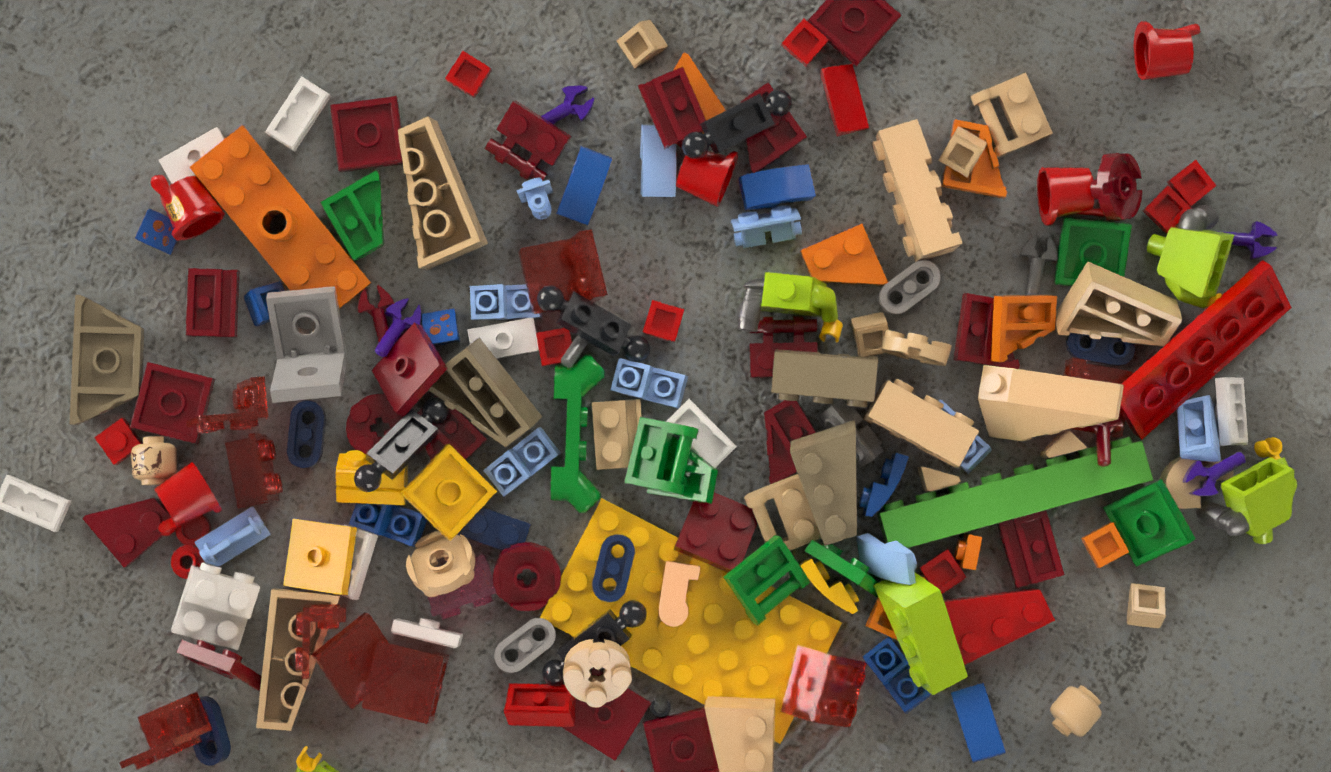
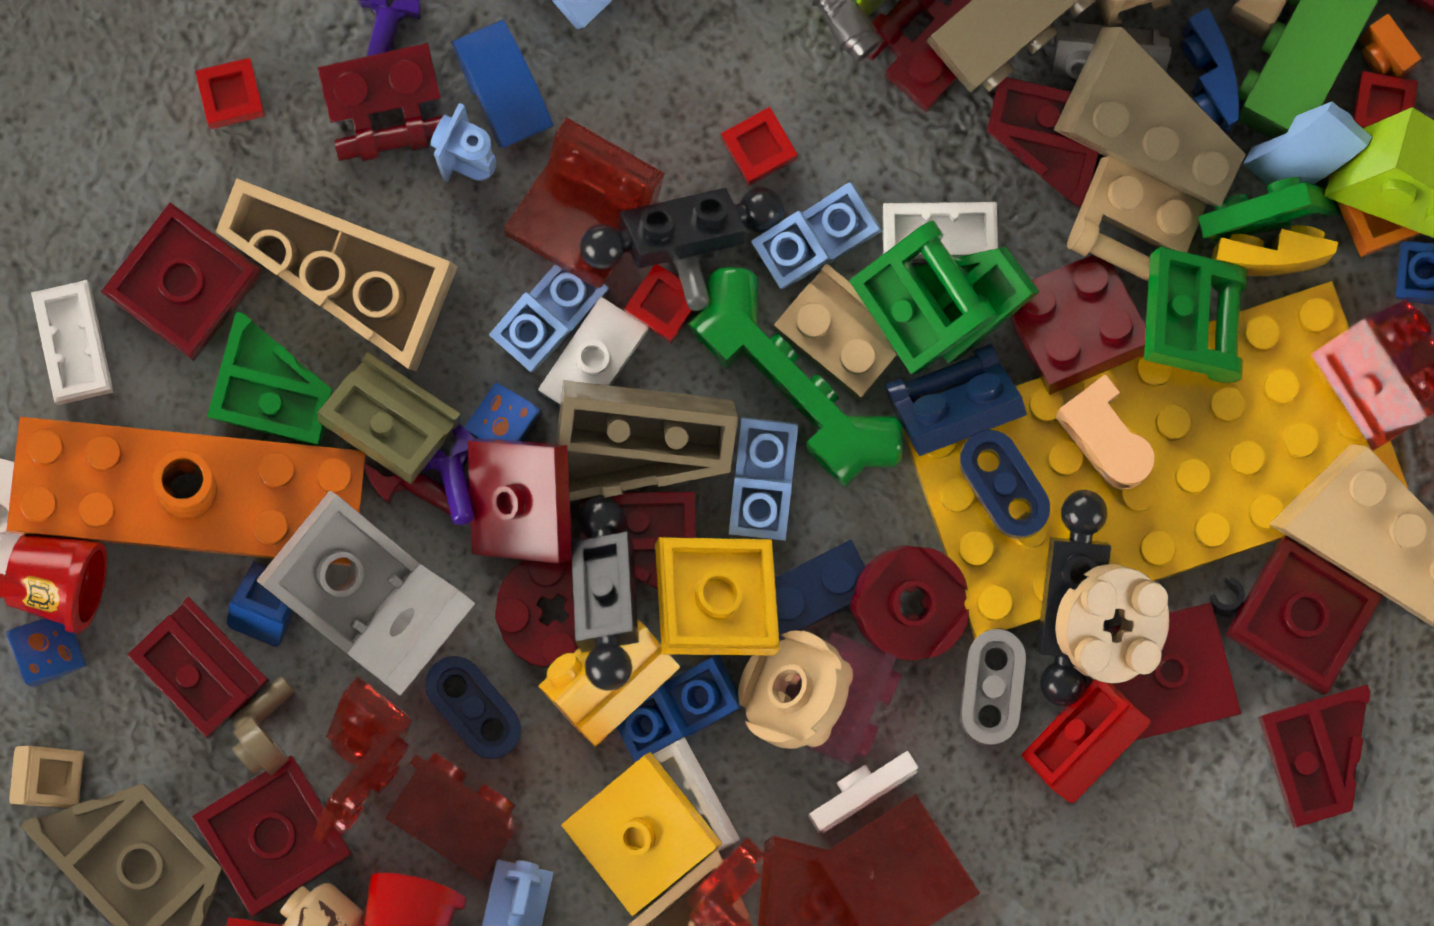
camera: 45 degrees left, 5 degrees down
(107, 284) = (46, 777): none -> tan slope
(201, 359) = (256, 746): none -> dark tan plate
(392, 279) = (388, 418): none -> olive plate
(628, 518) = (959, 412): none -> dark blue plate

